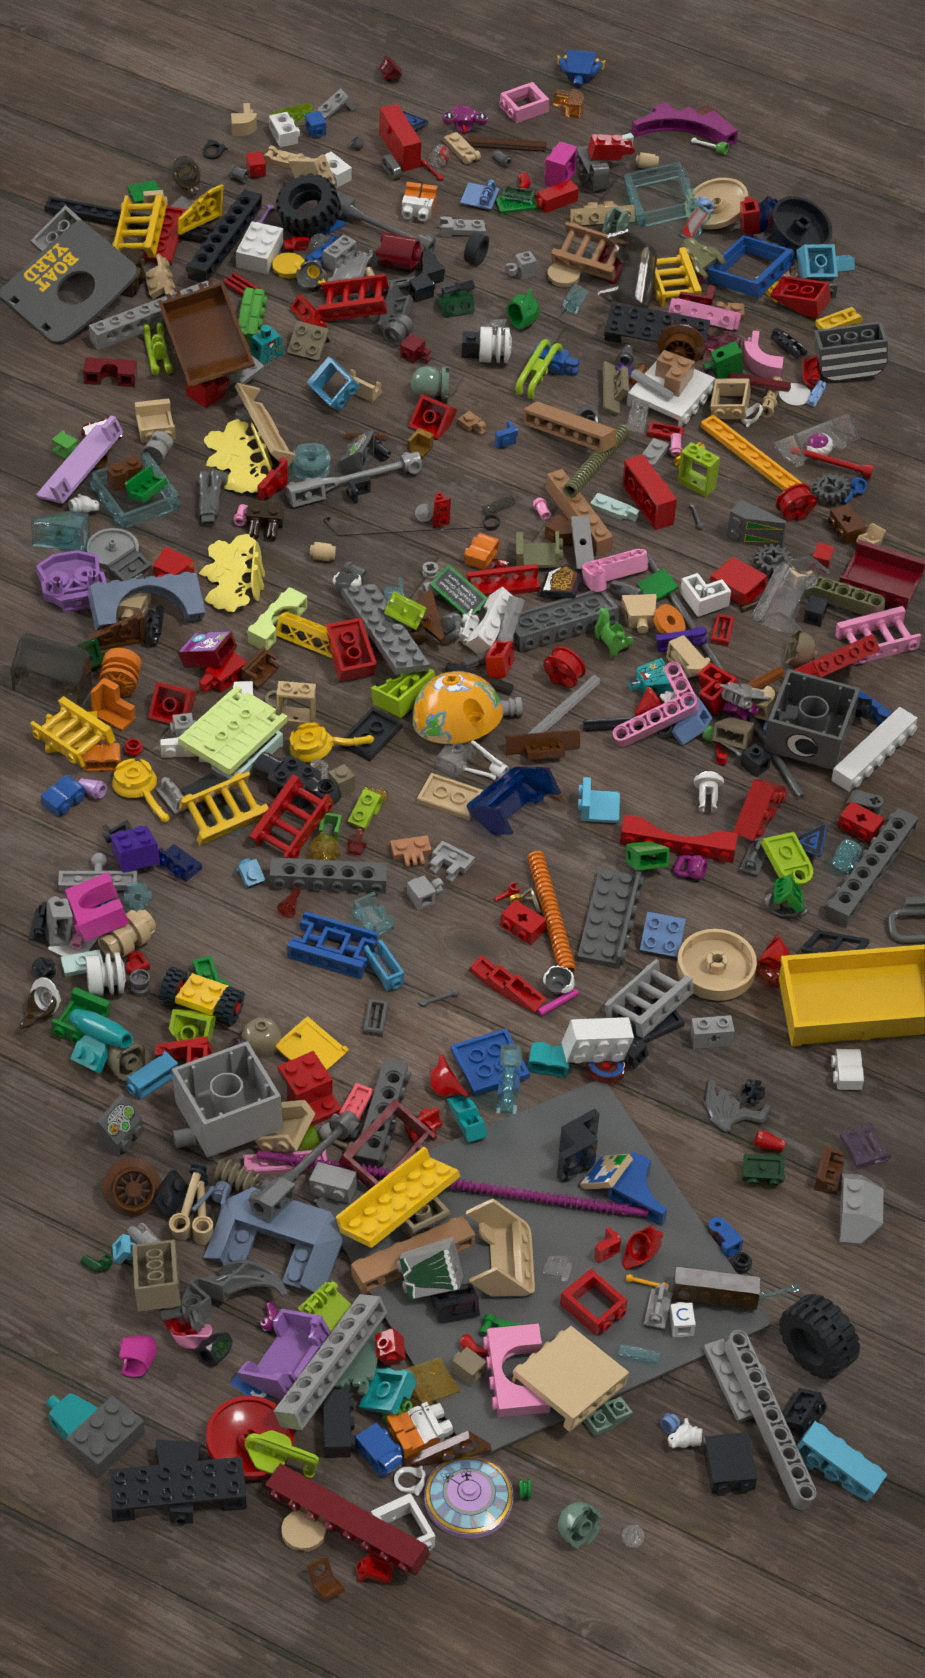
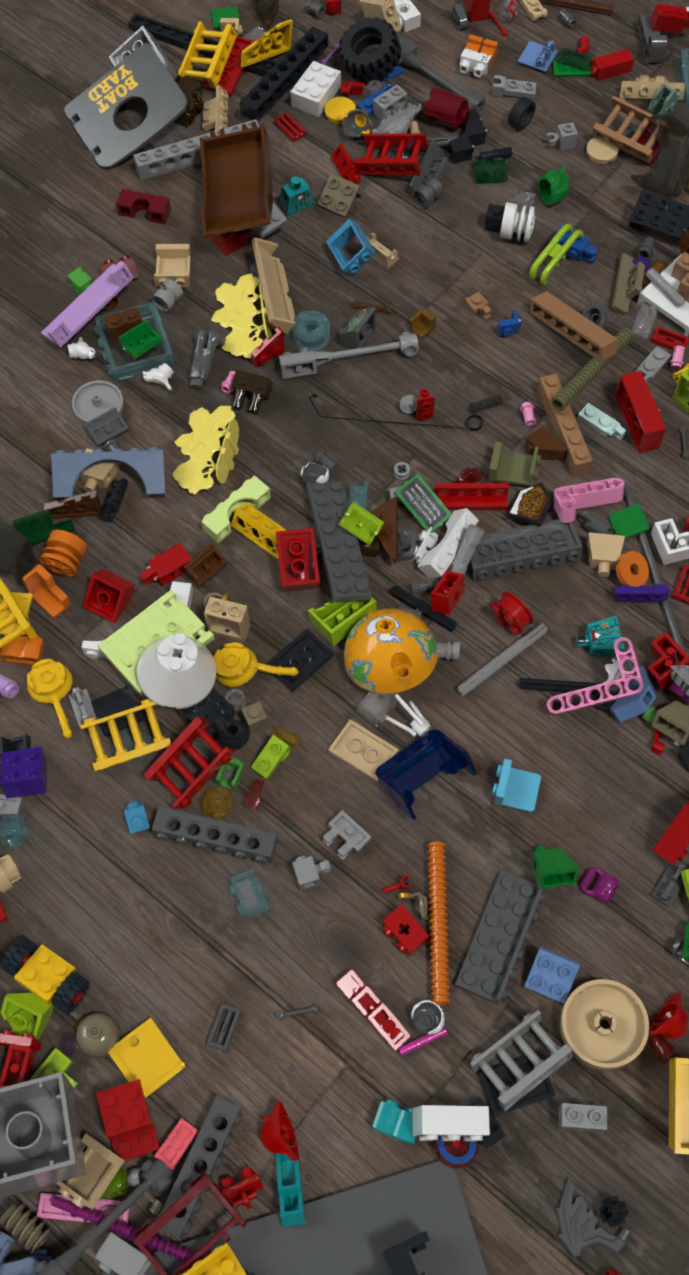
camera: 15 degrees right, 15 degrees up
(61, 531) = (50, 379): clear light blue slope -> none
(67, 578) = (46, 423): medium lavender brick -> none
(133, 747) = (56, 637): red plate -> none
(157, 349) = (193, 187): lime piece -> none
(169, 517) = (159, 375): none -> white animal
(172, 563) = (147, 433): red torso -> none
(179, 862) = (69, 790): clear blue bracket -> none
(181, 723) = (109, 624): light grey brick -> none
(206, 968) = (61, 940): green hinge -> none
(207, 649) = (155, 539): dark red brick -> none
(252, 312) = (290, 159): bright green brick -> none
(262, 742) = (176, 671): none -> white cone
(288, 906) = (165, 866): clear red cone -> none
(323, 551) = (299, 435): tan brick -> none
(328, 957) = (190, 940): blue fence -> none
(358, 487) = (350, 365): black bracket -> none
(380, 450) = (381, 324): black axle -> none
(385, 966) = (246, 965): dark azure window -> none
(411, 849) = (308, 812): nougat hinge -> none
(414, 348) = (438, 216): dark red brick -> none
(431, 382) = (446, 257): sand green tile -> none
(432, 416) = (440, 294): red slope -> none
(481, 551) = (457, 457): orange brick -> none
(481, 1058) = (332, 1113): blue plate -> none
(508, 1079) = (339, 1163): clear light blue brick -> none
(544, 744) = (472, 704): reddish brown bracket -> none
(560, 164) = (621, 31): dark pink brick -> none
(575, 298) = (607, 179): clear light blue brick -> none
(582, 532) = (560, 451): light grey tile -> none
(611, 635) = (570, 577): bright green hair -> none
(648, 702) = (593, 669): red hat -> none
(684, 653) = (642, 618): tan piece -> none
(708, 784) = (636, 782): white piece -> none
(714, 846) = (632, 863): red arch -> none

